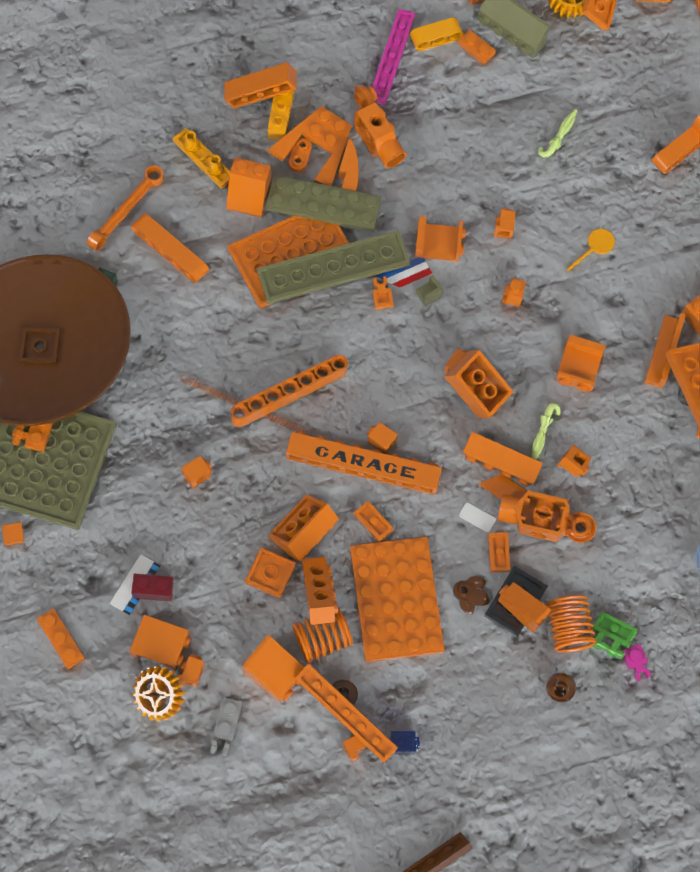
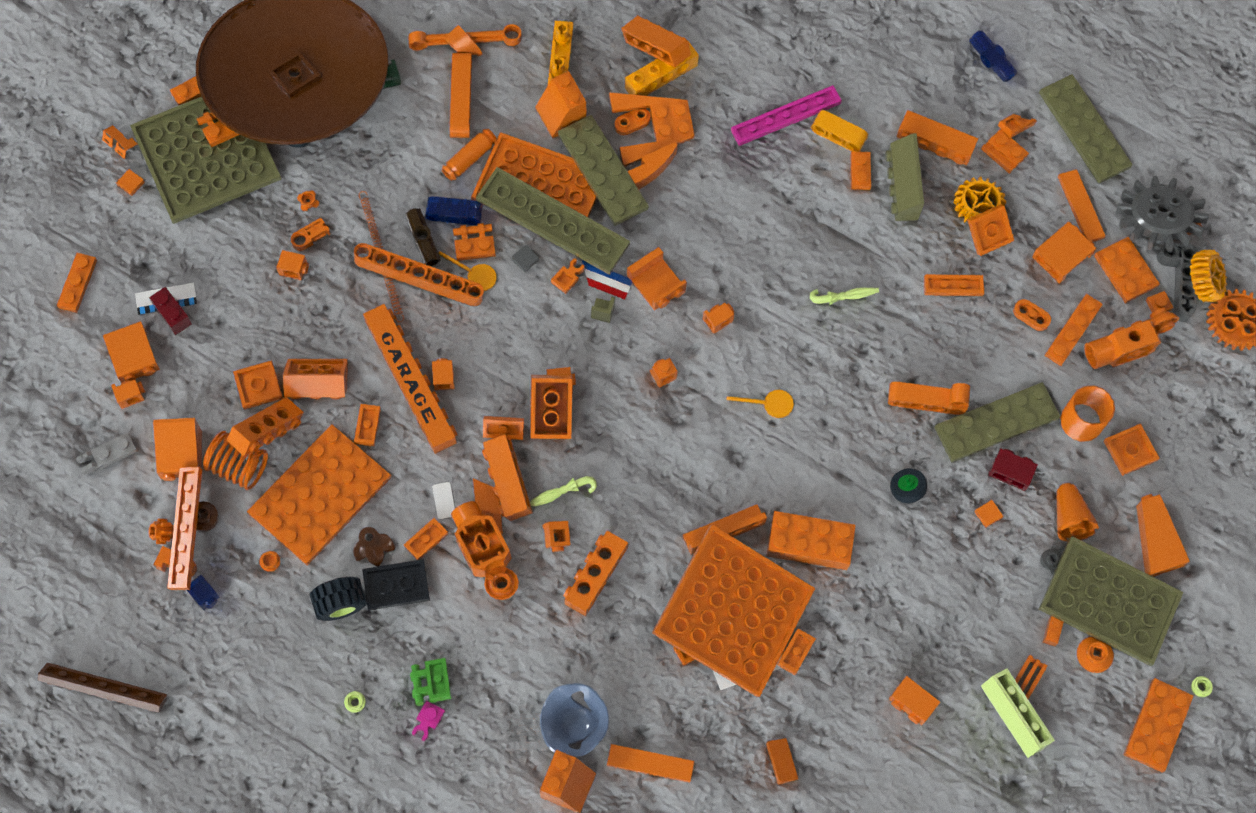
camera: 50 degrees right, 0 degrees up
(129, 211) = (462, 42): none -> orange slope
(155, 708) = (87, 382): light orange gear -> none
(158, 417) = (308, 195): none -> orange plate
(182, 439) = (311, 232): none -> orange piece
(223, 280) = (469, 154): none -> orange axle
(258, 327) = (453, 210): none -> clear blue beam
(270, 369) = (425, 246): none -> dark brown piece
(299, 338) = (474, 247): none -> orange plate
(322, 351) = (479, 273): none -> light orange piece
(328, 734) = (161, 531): none -> orange gear
(340, 310) = (525, 258): none -> dark grey tile
(375, 129) = (703, 154): orange brick -> none
(419, 675) = (269, 561): none -> orange plate
(460, 431) = (499, 426): none -> orange plate
(497, 647) = (338, 598): none -> black wheel
(524, 606) = (389, 591): orange slope -> none
(561, 605) = (389, 652): orange piece -> none
(561, 687) = (351, 676): reddish brown plate -> none
(580, 363) = (649, 473): orange panel -> none
(586, 699) = (351, 696): none -> yellowish green plate
(615, 62) = (953, 285): none -> orange plate
(620, 431) = (583, 602): none -> orange brick
(679, 34) = (1032, 314): none -> orange plate

